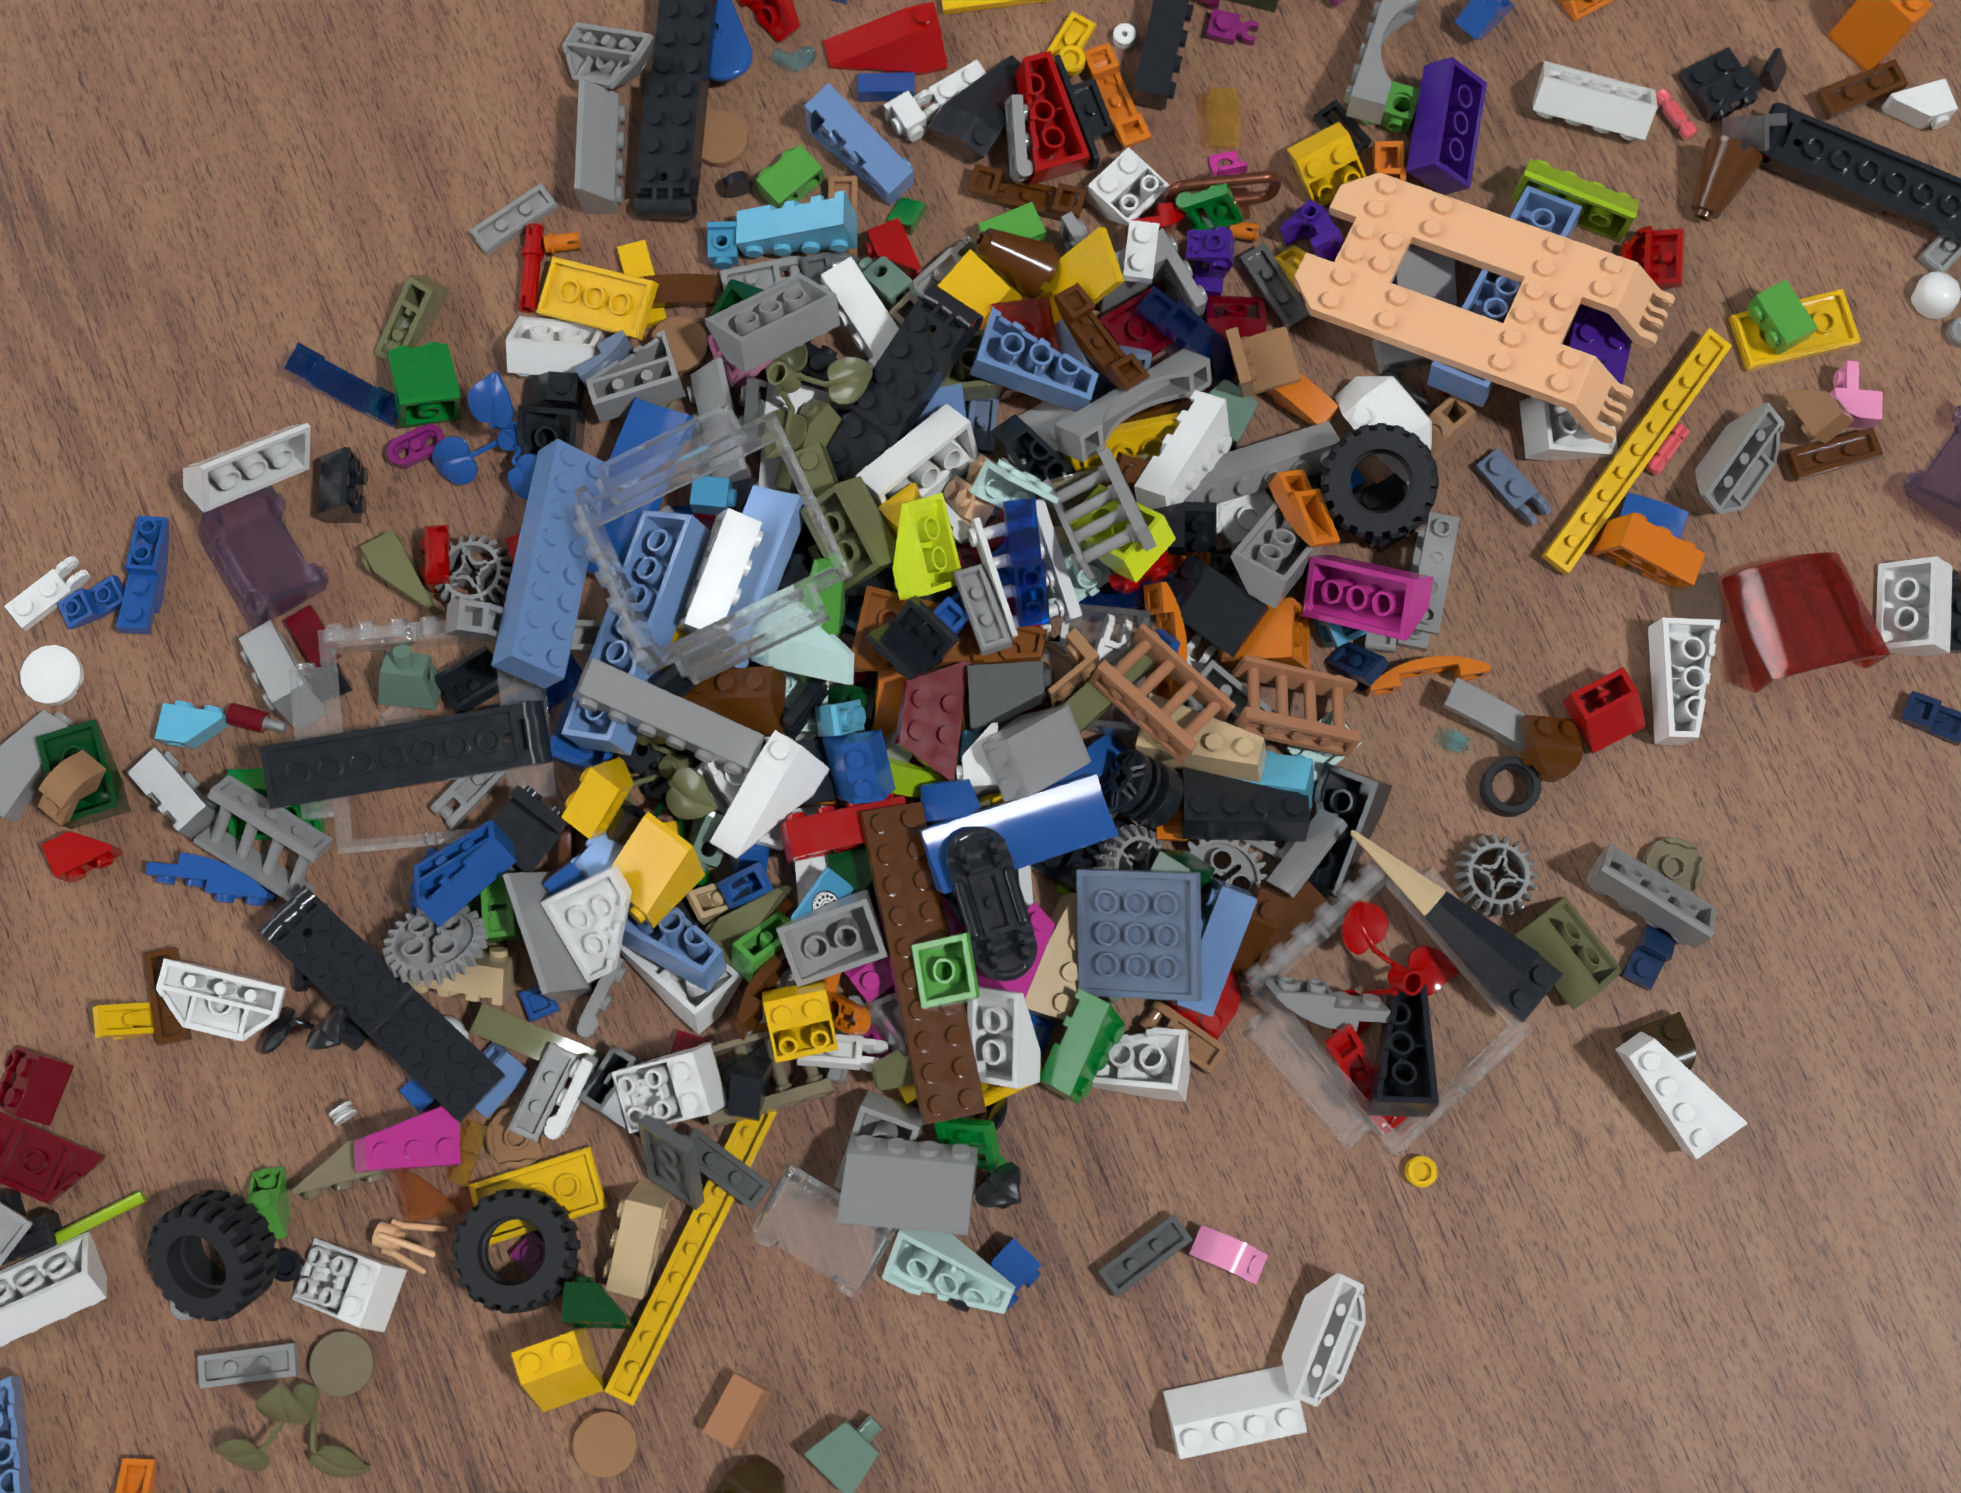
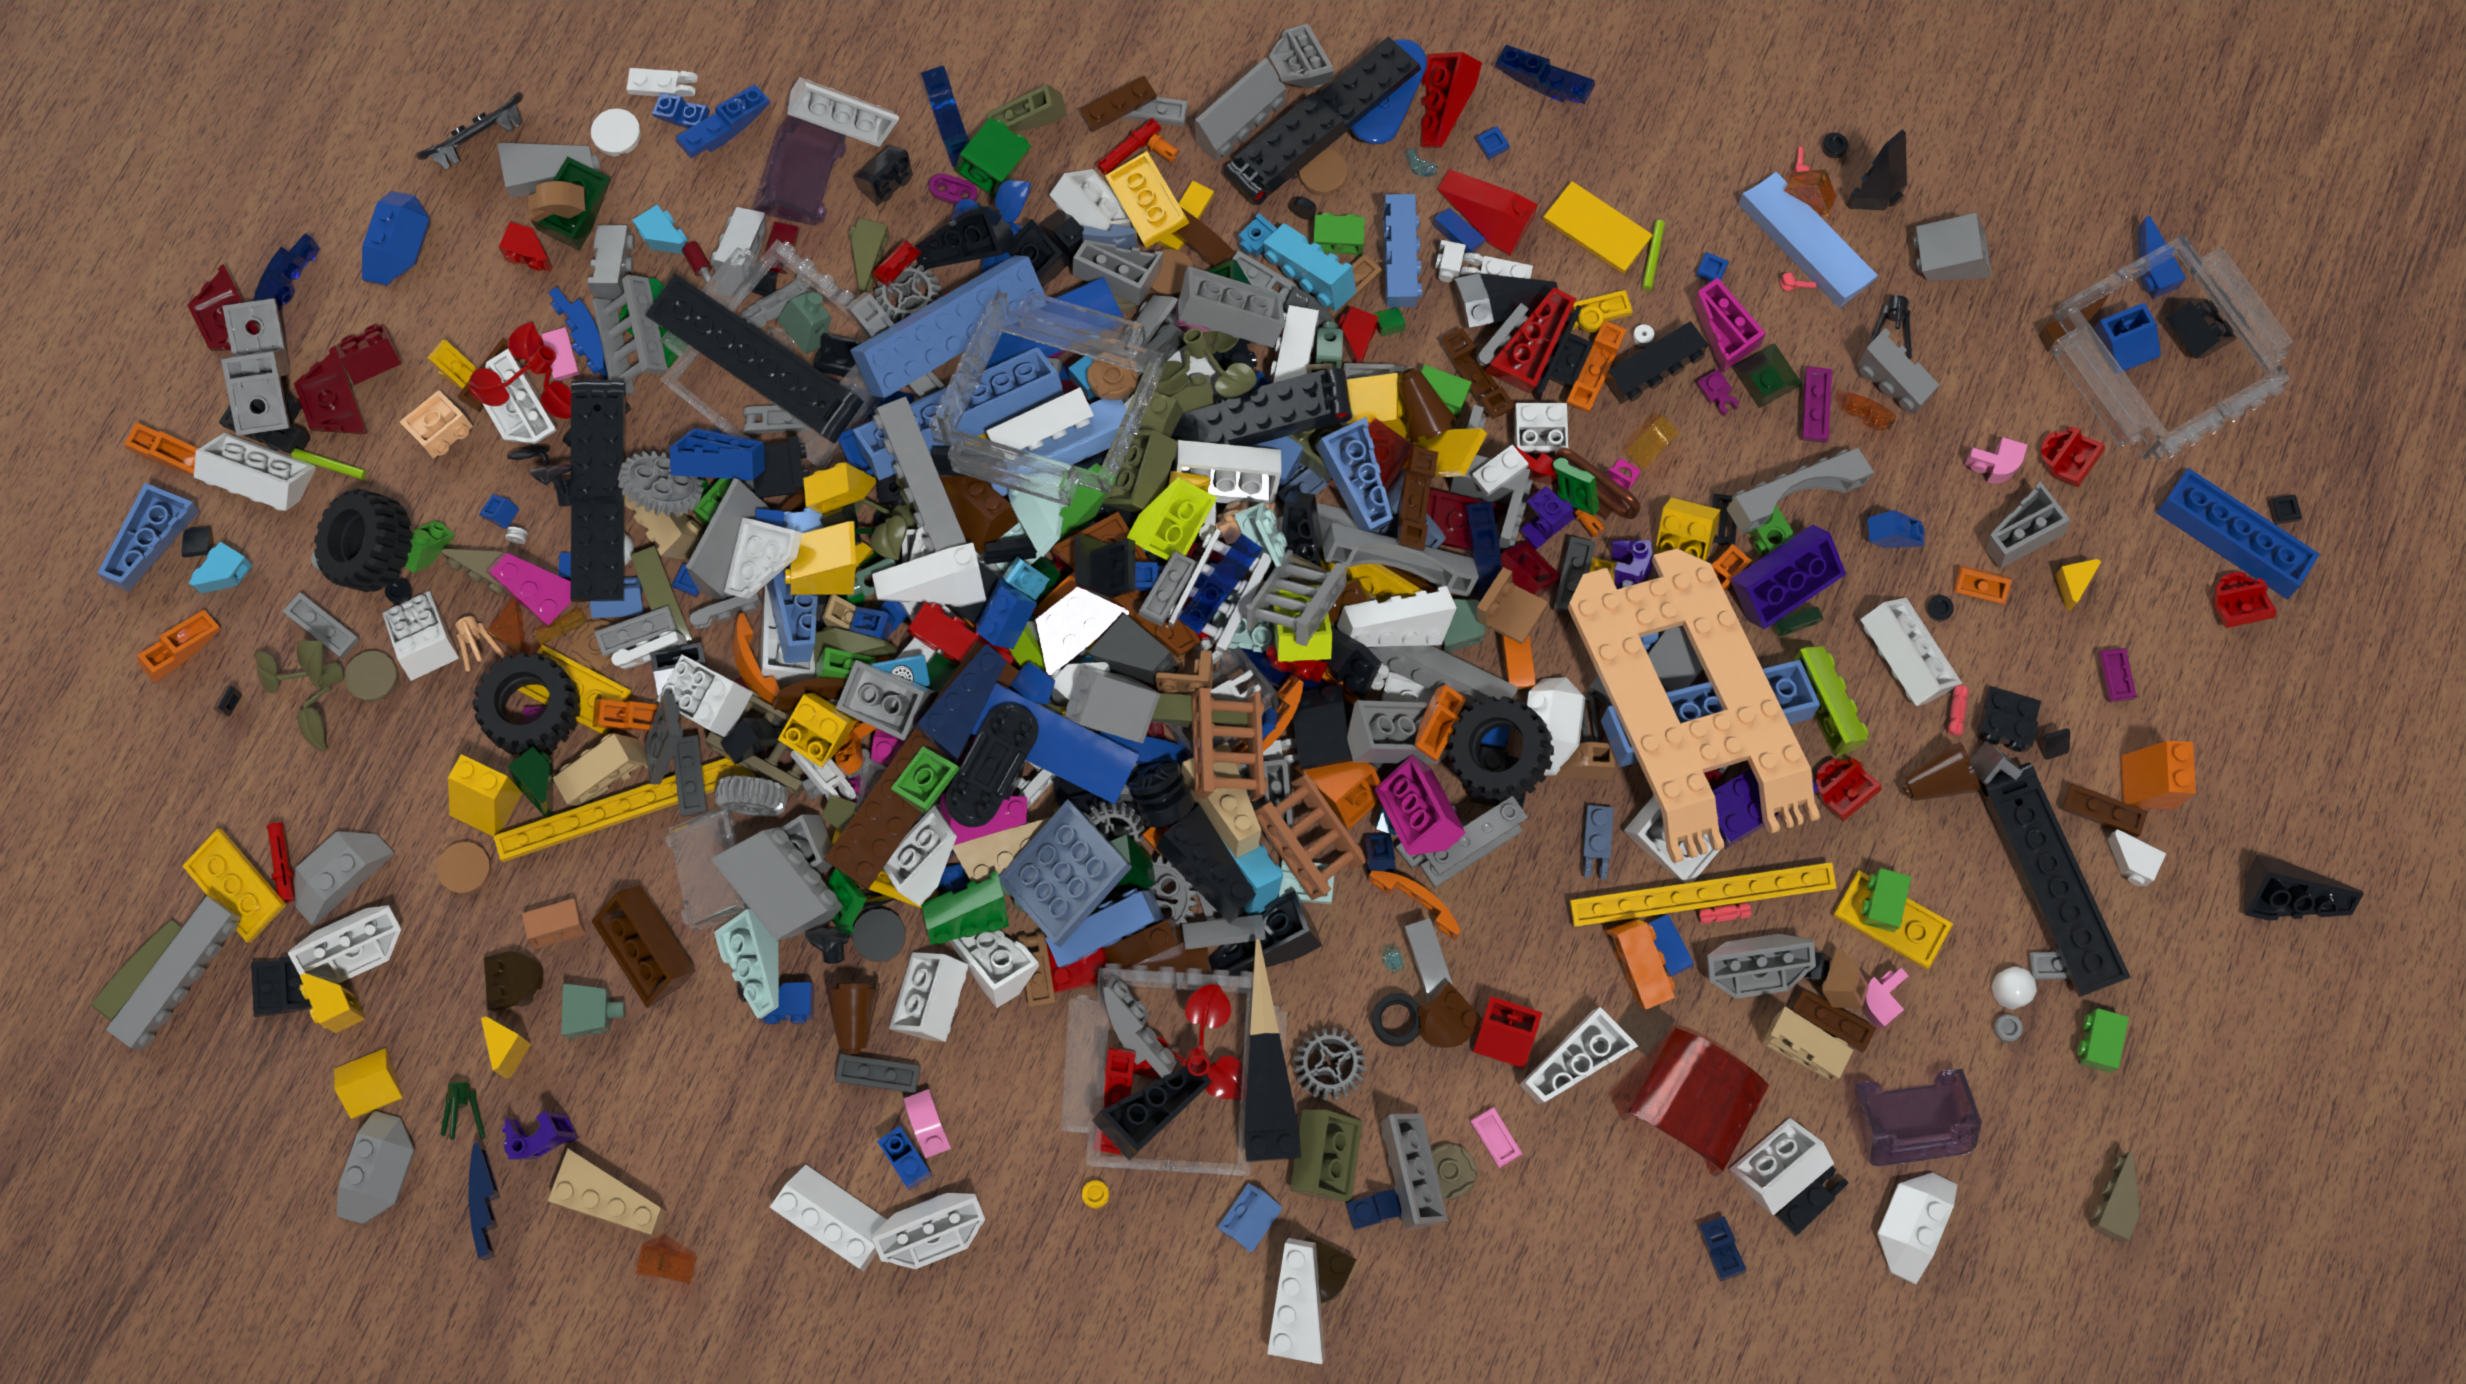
camera: 45 degrees right, 5 degrees down
(51, 1406) = (196, 542): none -> black slope
(100, 1409) = (220, 570): none -> medium azure slope
(164, 1087) = (436, 424): none -> light nougat plate
(175, 938) = (527, 345): none -> red plant
(211, 917) = (565, 363): none -> bright pink tile
(303, 1107) = (499, 511): none -> blue slope
(362, 692) = (772, 305): none -> light grey hinge
(480, 475) = (966, 238): none -> black wedge
(484, 238) = (1118, 103): none -> reddish brown plate
(611, 1172) = (624, 715): none -> orange slope
(674, 1025) = (747, 666): none -> orange slope
(739, 480) = (1111, 380): none -> medium nougat tile
(796, 1133) = (751, 796): none -> light grey gear
(834, 1351) = (643, 945): none -> reddish brown slope
(909, 876) = (959, 707): none -> dark blue wedge
(1025, 1139) = (879, 935): none -> dark grey tile
(1072, 1226) = (852, 1013): none -> reddish brown cone
(1119, 1149) = (929, 996): none -> white slope
(1243, 1302) = (904, 1158): none -> blue slope
(1486, 157) = (1798, 621): none -> clear green beam
(1560, 1064) = (1250, 1217): none -> medium blue panel
(1578, 44) = (1940, 608): none -> black tile
(1679, 804) = (1496, 1137): none -> bright pink tile
(1790, 425) = (1820, 972): none -> black tile
(1837, 492) = (1807, 1045): none -> tan wedge

